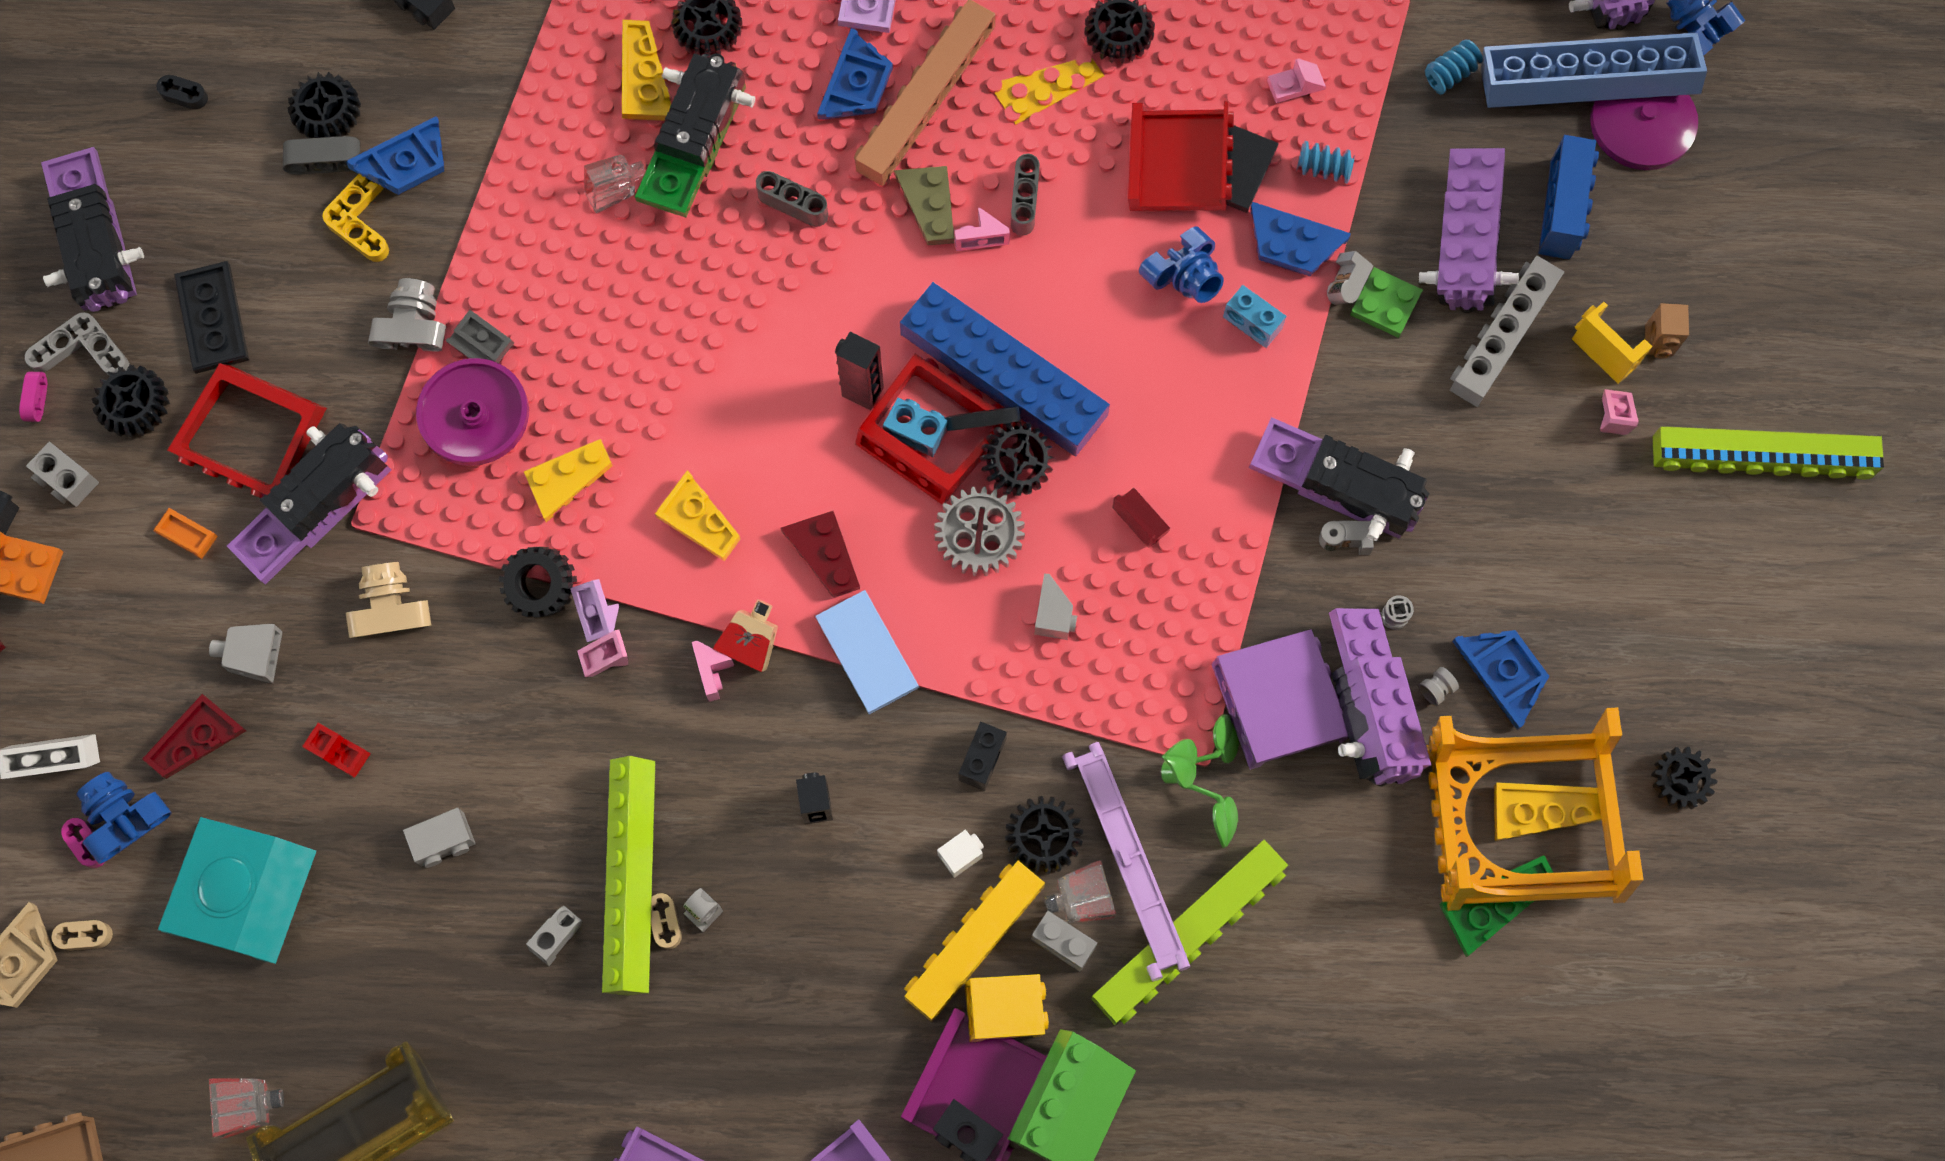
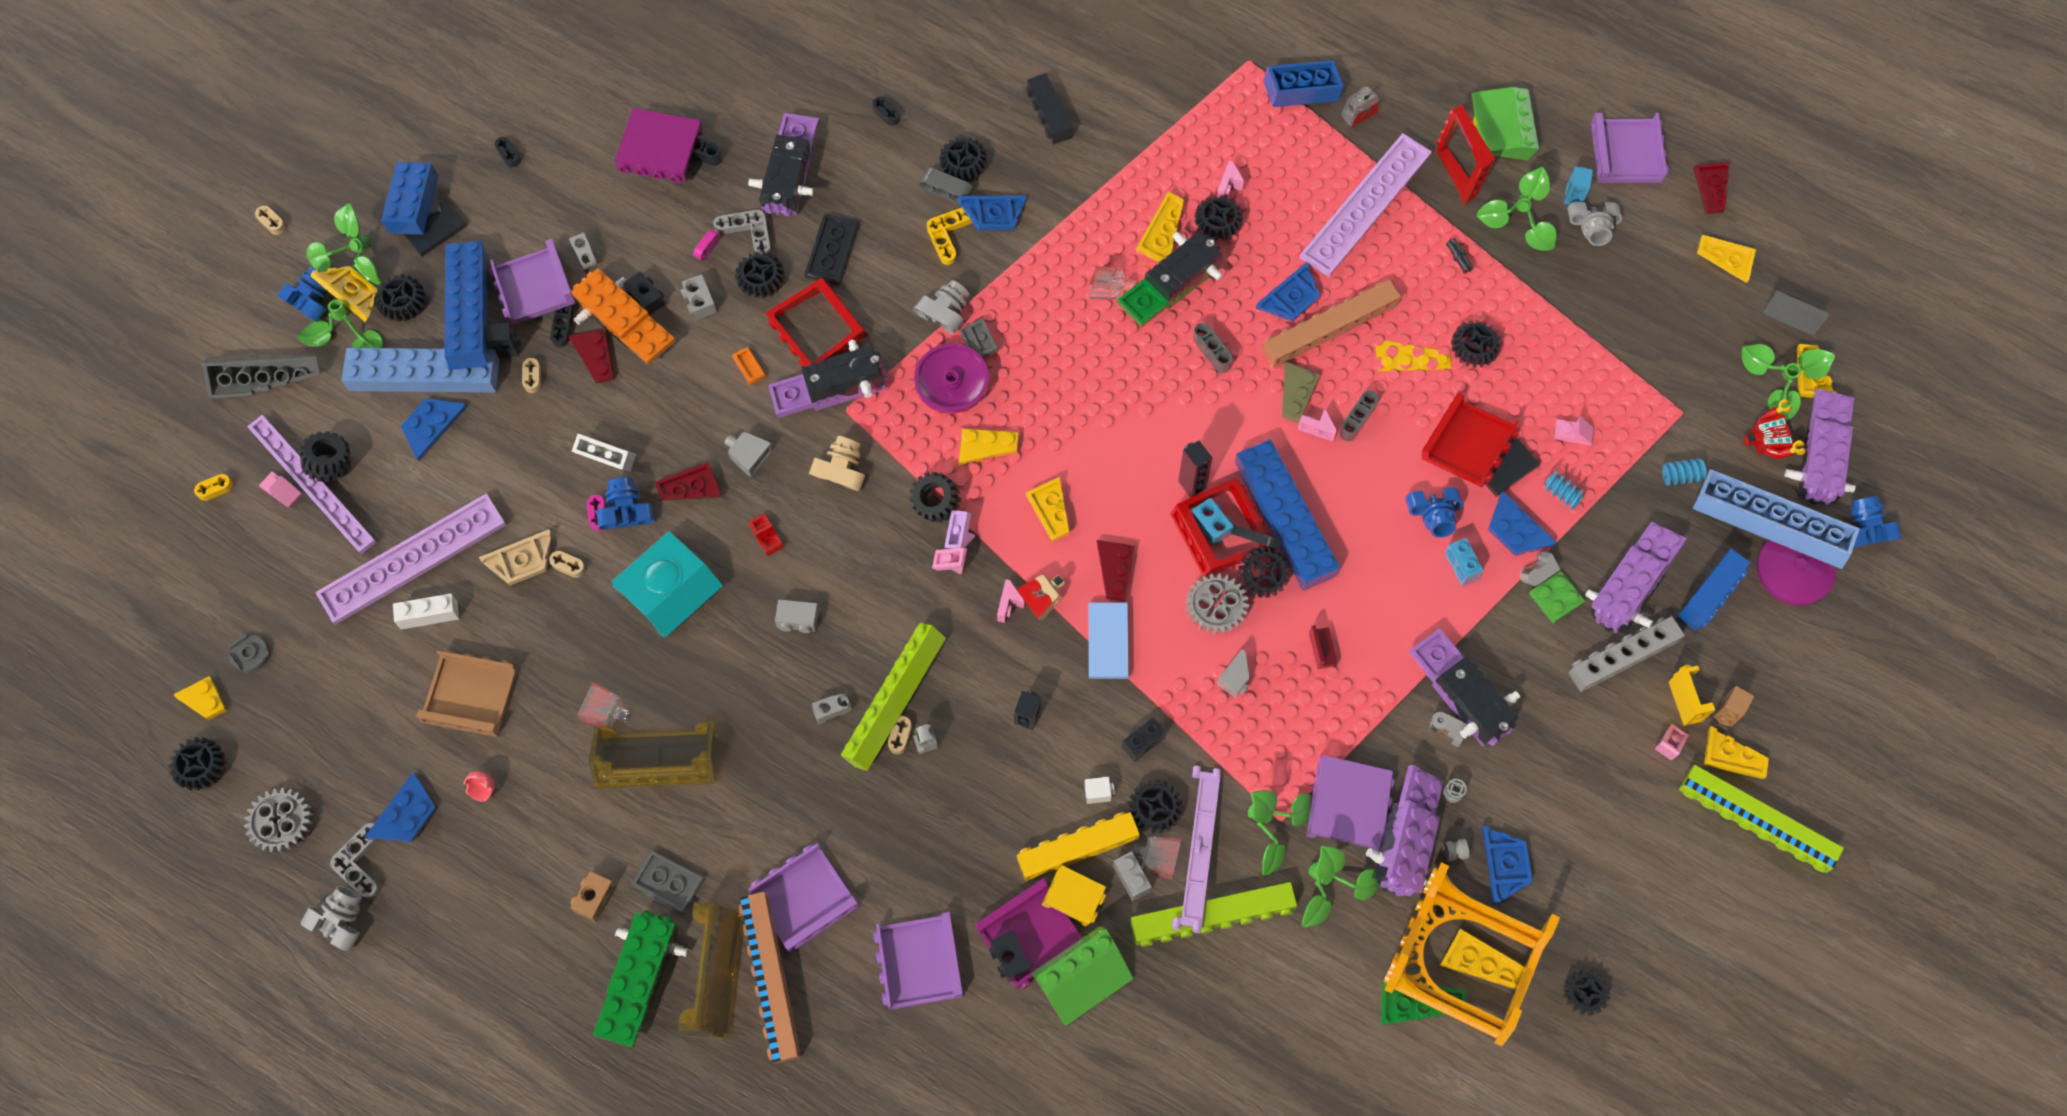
camera: 30 degrees right, 5 degrees down
(1305, 789) = (1329, 862): none -> bright green plant
(1695, 392) = (1731, 756): none -> yellow wing

